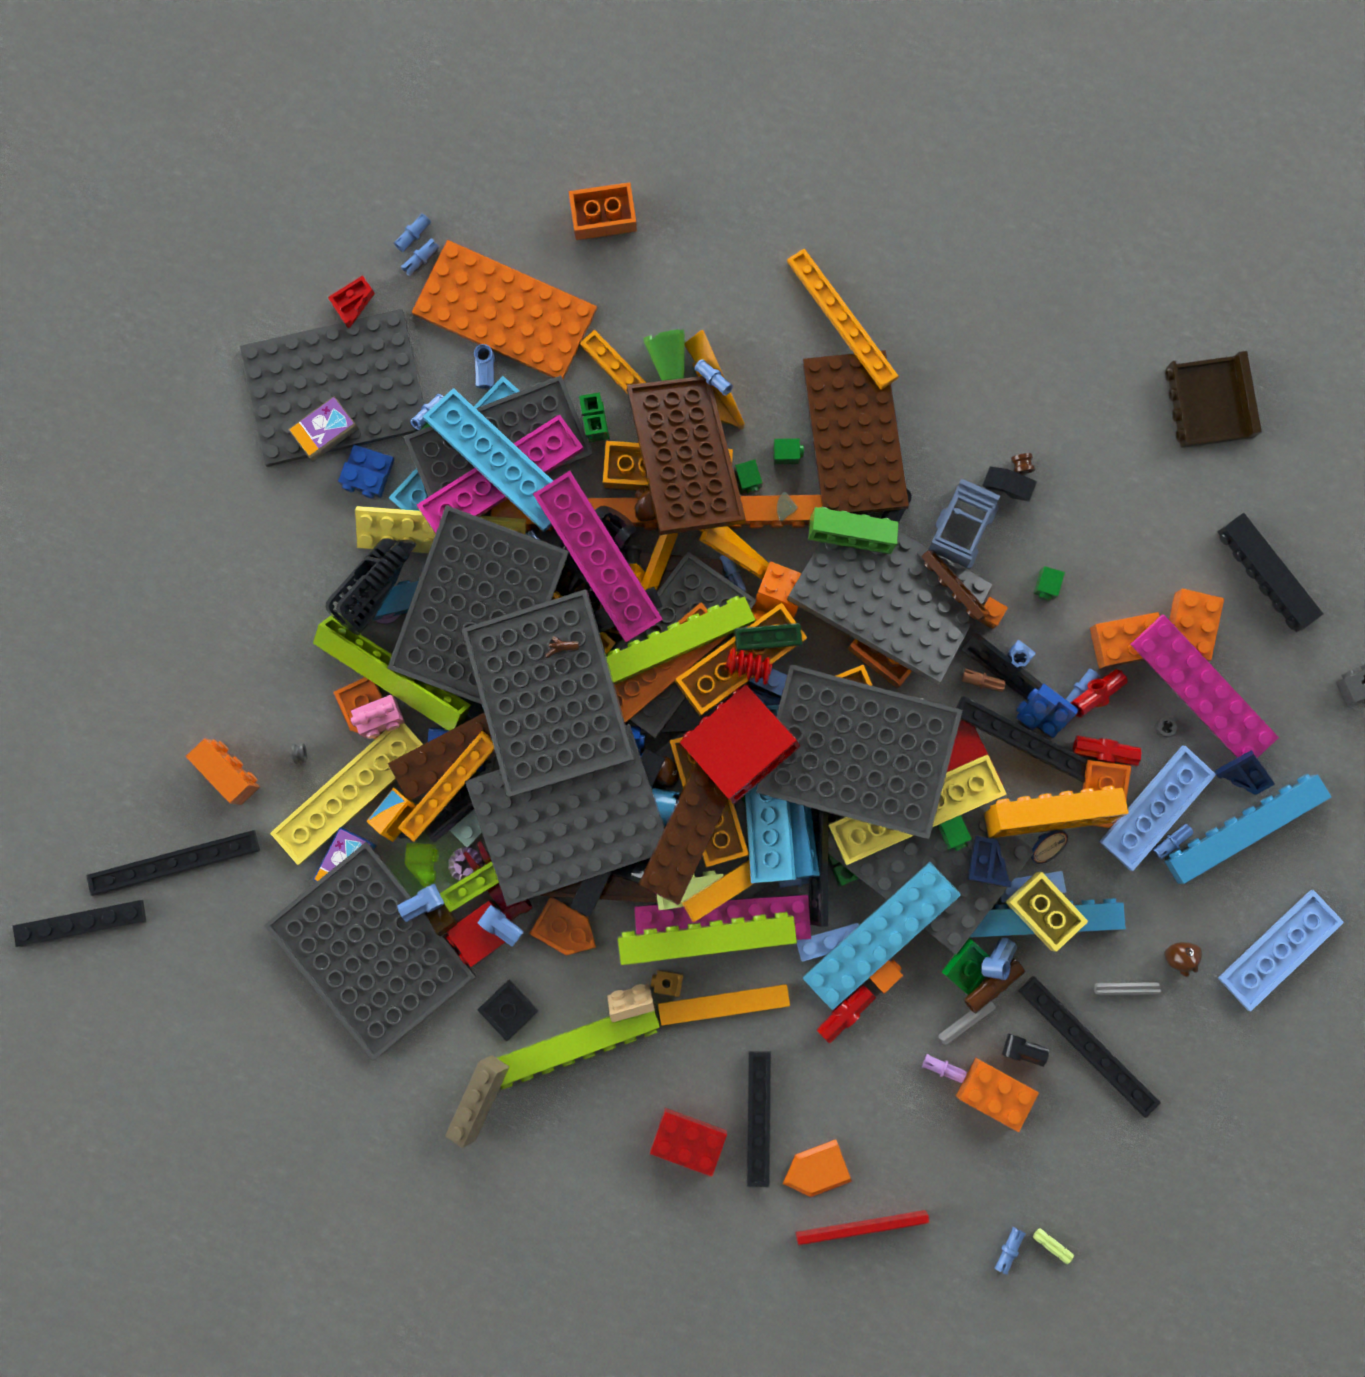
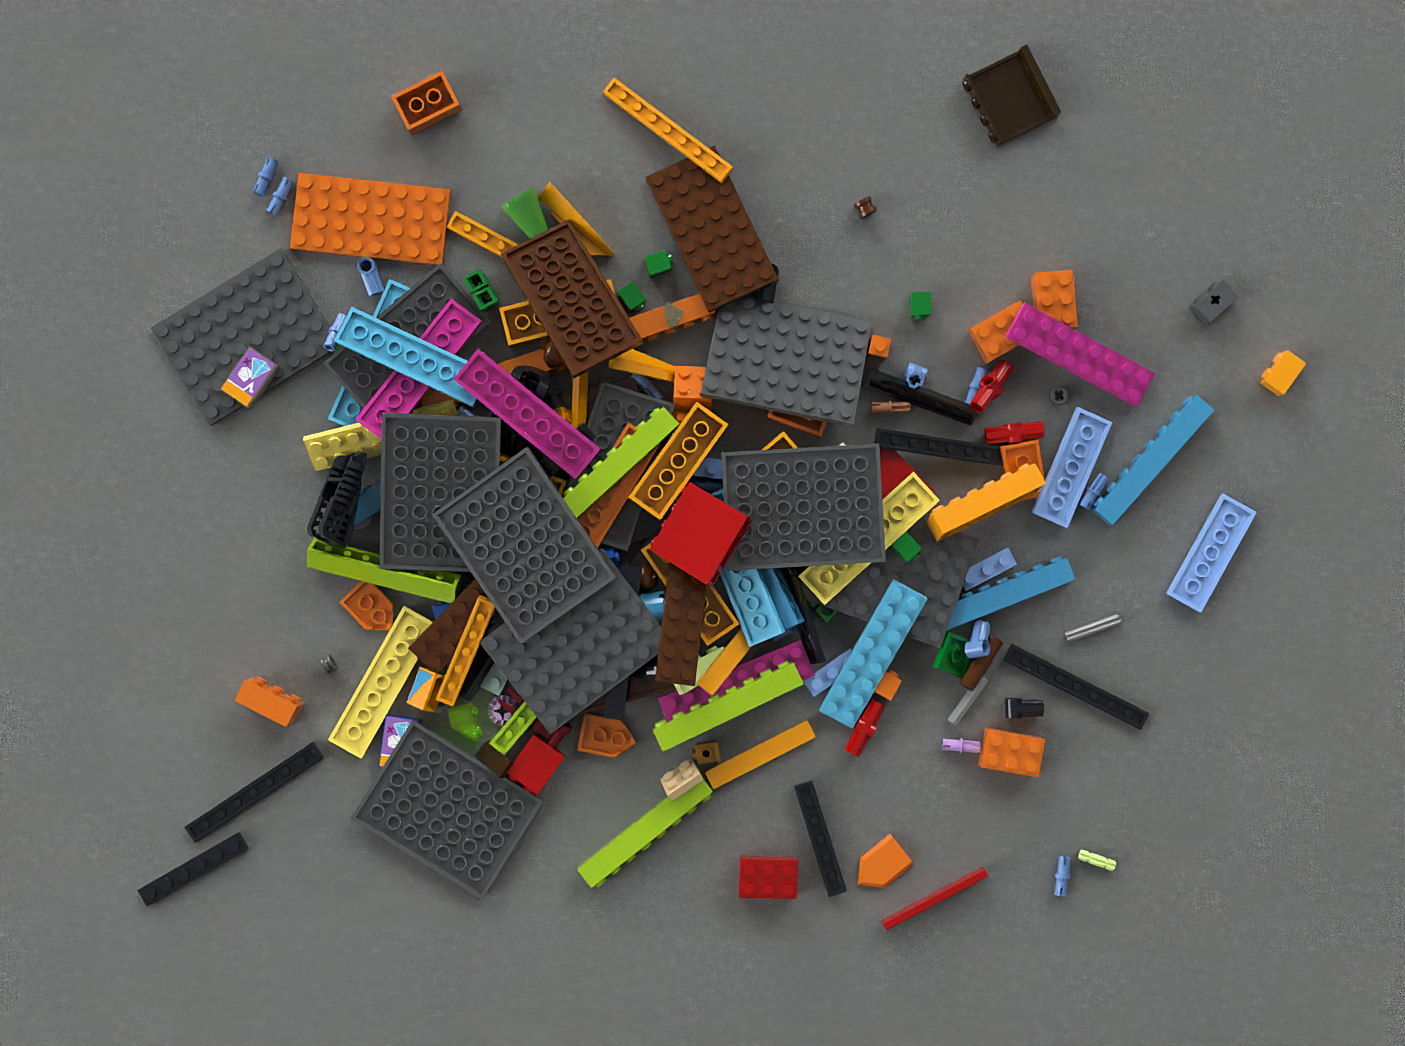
camera: 20 degrees left, 5 degrees up
(352, 300) = (234, 255): red wing -> none
(366, 472) = (299, 402): blue plate -> none
(377, 717) = (385, 611): bright pink brick -> none
(426, 901) = (480, 753): medium blue piece -> none
(477, 1101) = (581, 903): dark tan brick -> none
(496, 923) = (547, 751): medium blue piece -> none
(508, 1010) = (580, 819): black tile -> none
(560, 646) = (521, 502): reddish brown bar -> none
(713, 377) = (573, 221): medium blue pin -> none
(748, 665) = (686, 465): red piece -> none
(768, 637) = (695, 435): dark green tile -> none
(853, 530) = (737, 316): bright green brick -> none
(949, 579) = (836, 332): reddish brown plate -> none
(978, 498) = (835, 251): sand blue piece -> none
(987, 863) = (942, 563): dark blue wing -> none
(1010, 482) = (859, 228): black slope -> none
(1046, 711) = (951, 416): blue plate -> none
(1046, 911) = (1004, 587): light yellow brick -> none
(1049, 846) = (990, 530): piece -> none
(1184, 957) = (1131, 586): reddish brown piece -> none
(1246, 773) = (1137, 413): dark blue wing -> none
(1270, 573) = (1105, 232): black brick -> none

